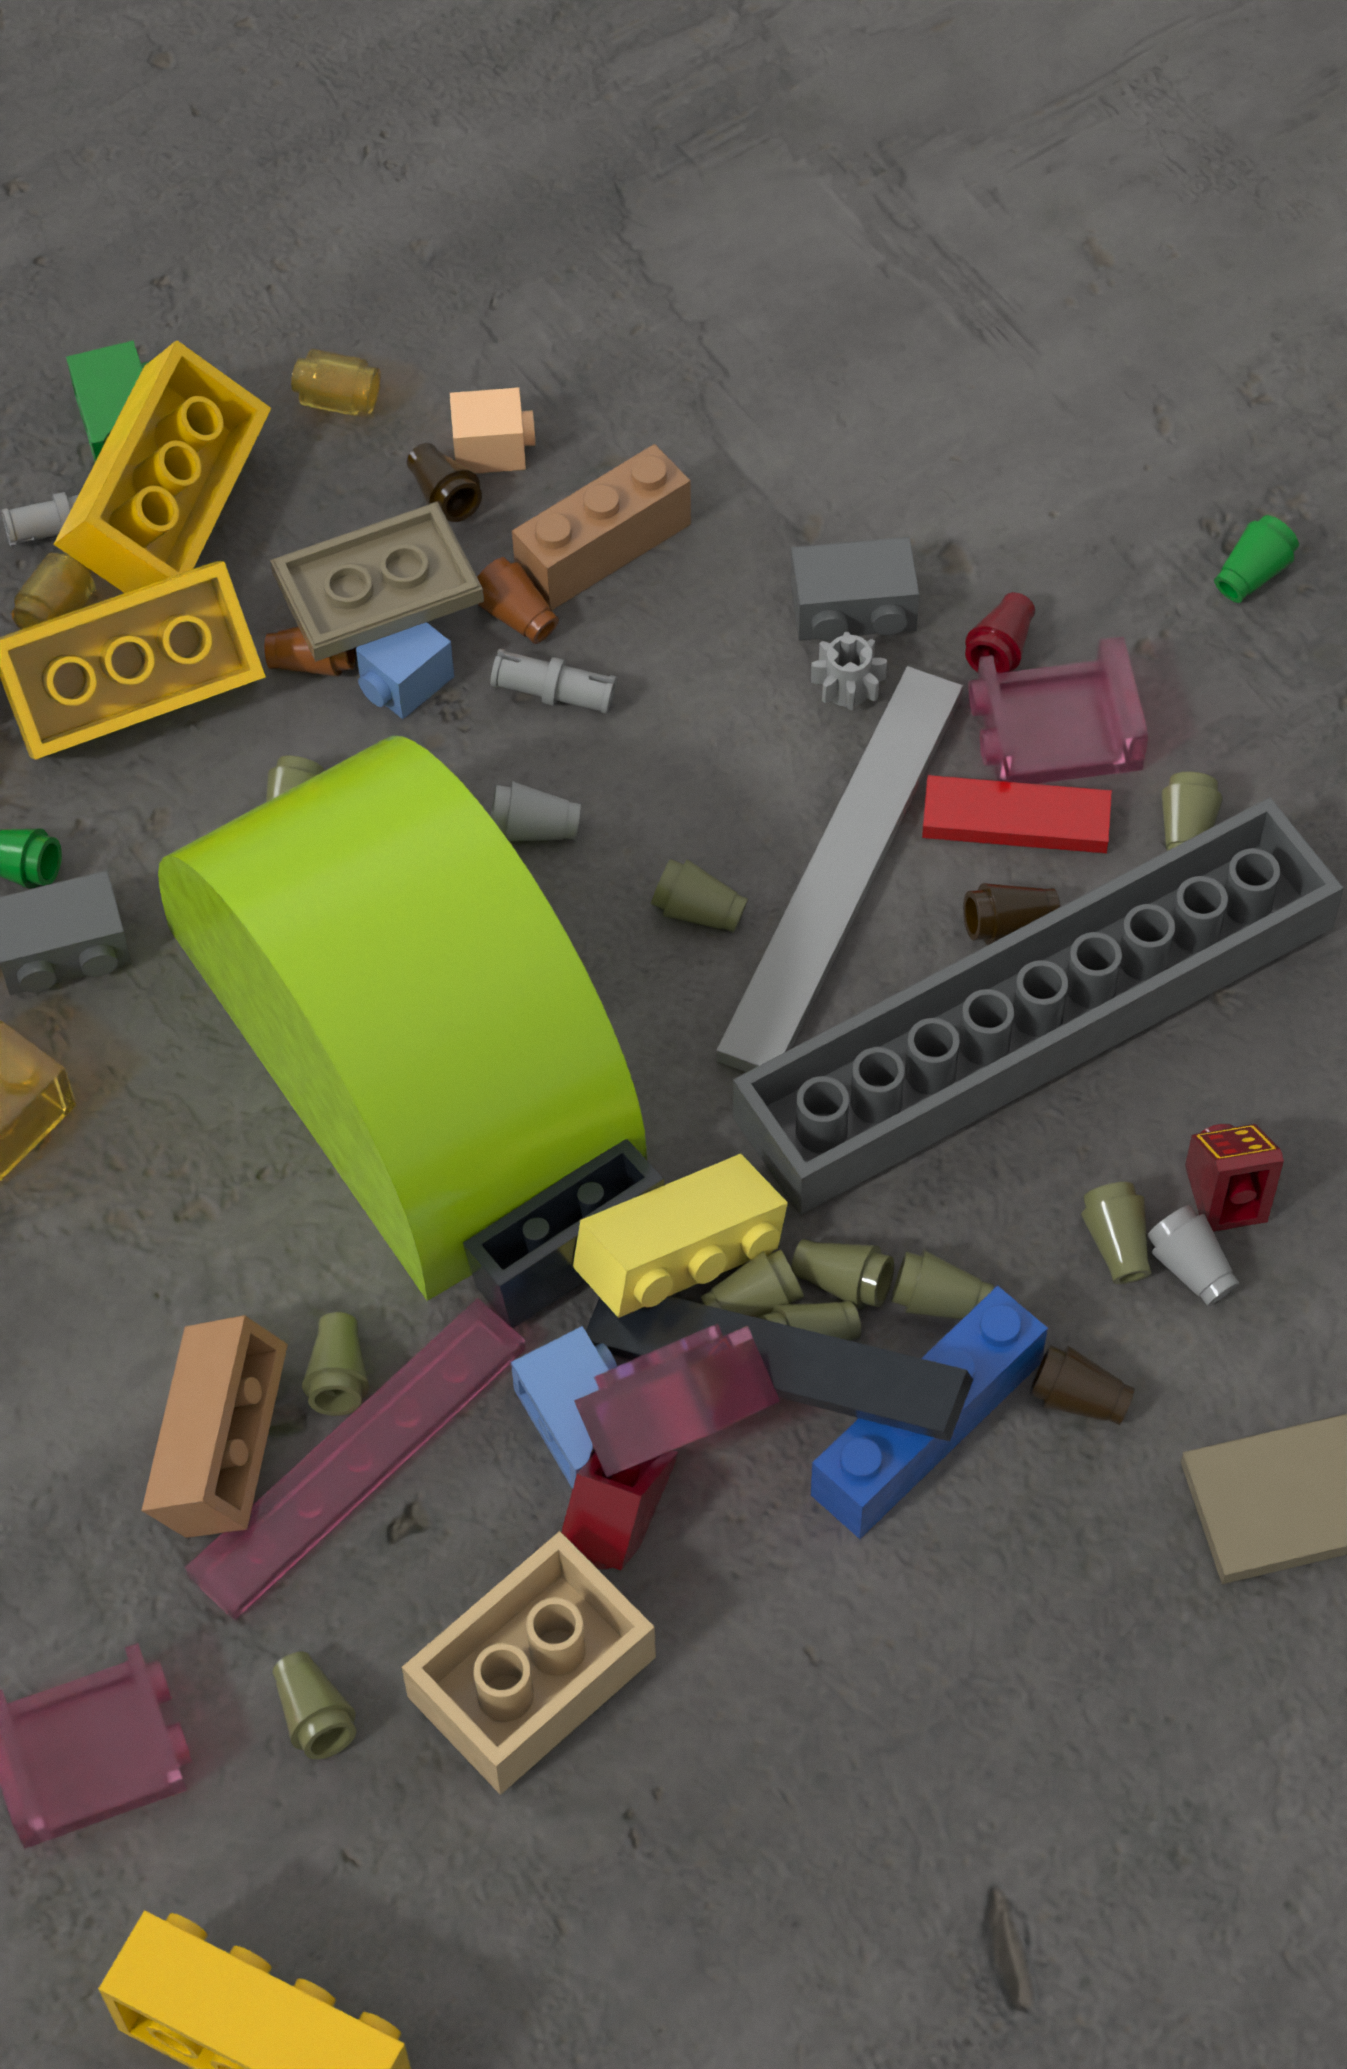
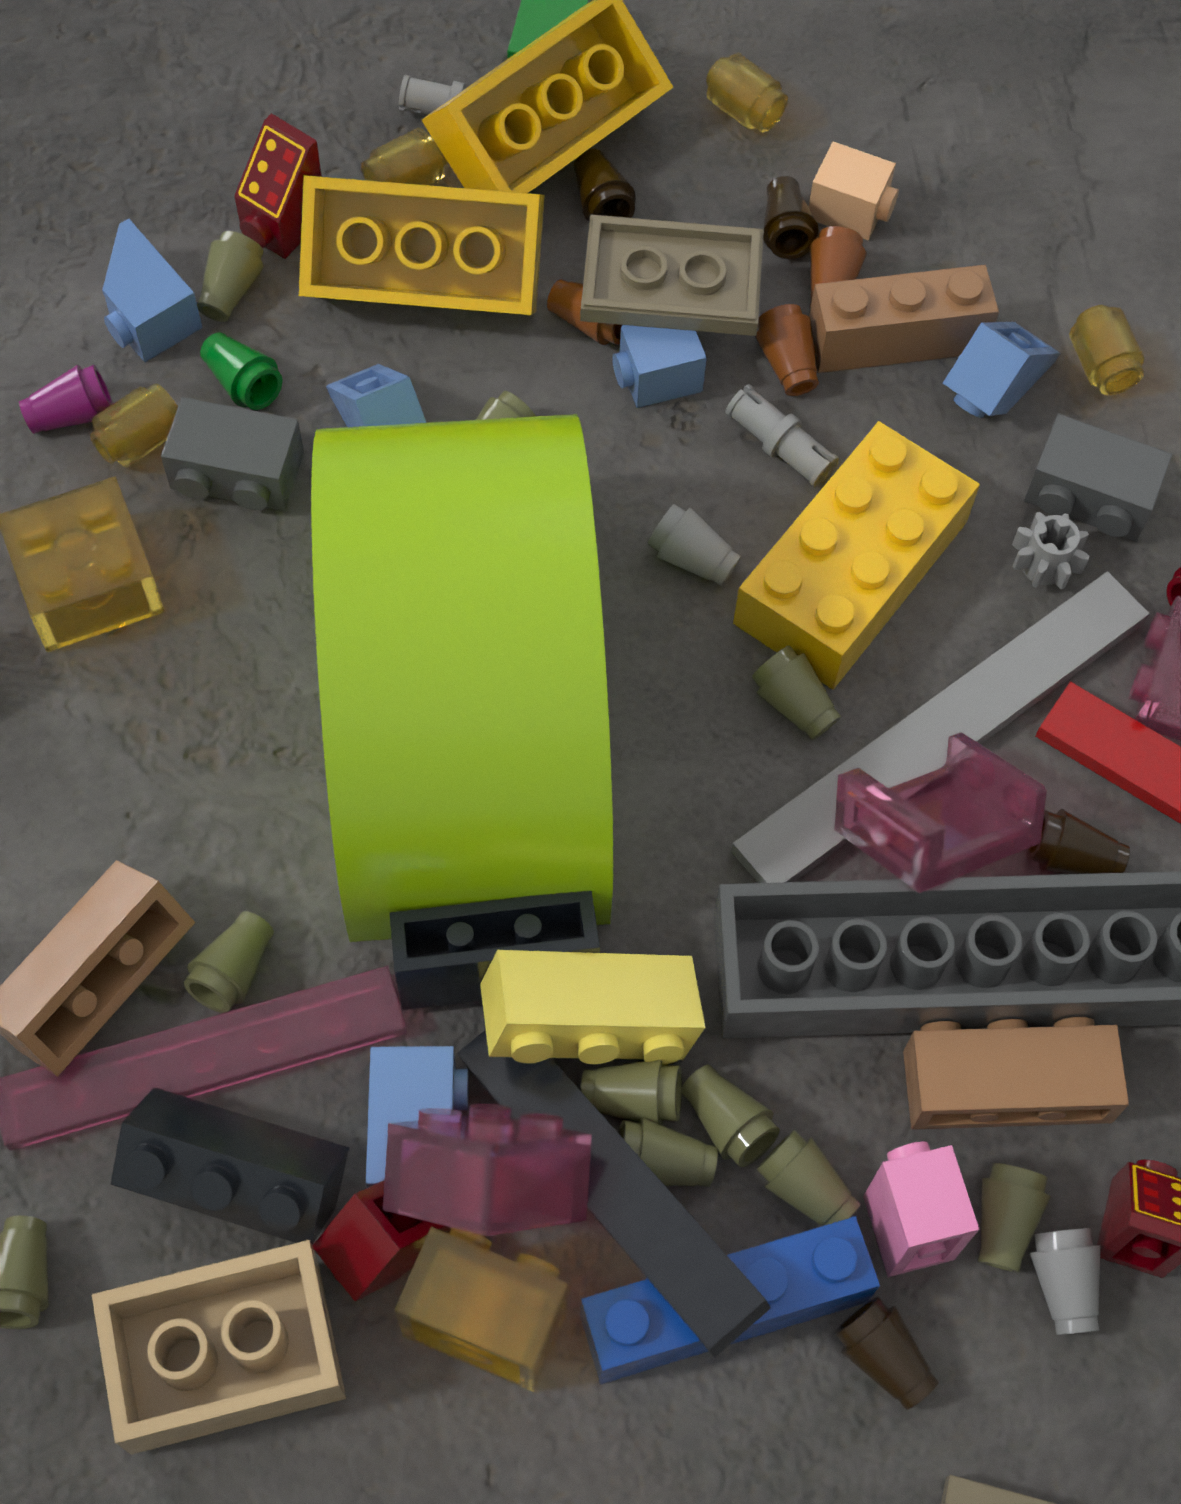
camera: 25 degrees right, 5 degrees up
(163, 821) = (376, 398): none -> medium blue slope
(256, 533) = (602, 187): none -> dark brown cone
(447, 1519) = (229, 1166): none -> black brick
(509, 500) = (836, 256): none -> dark orange cone
(681, 752) = (855, 553): none -> yellow brick
(713, 532) = (998, 368): none -> medium blue slope
(736, 1514) = (483, 1306): none -> clear yellow brick
(800, 471) = (1107, 349): none -> clear yellow brick
(890, 938) = (945, 819): none -> clear pink panel
(1046, 1255) = (919, 1208): none -> bright pink brick
(1061, 1119) = (1014, 1074): none -> medium nougat brick

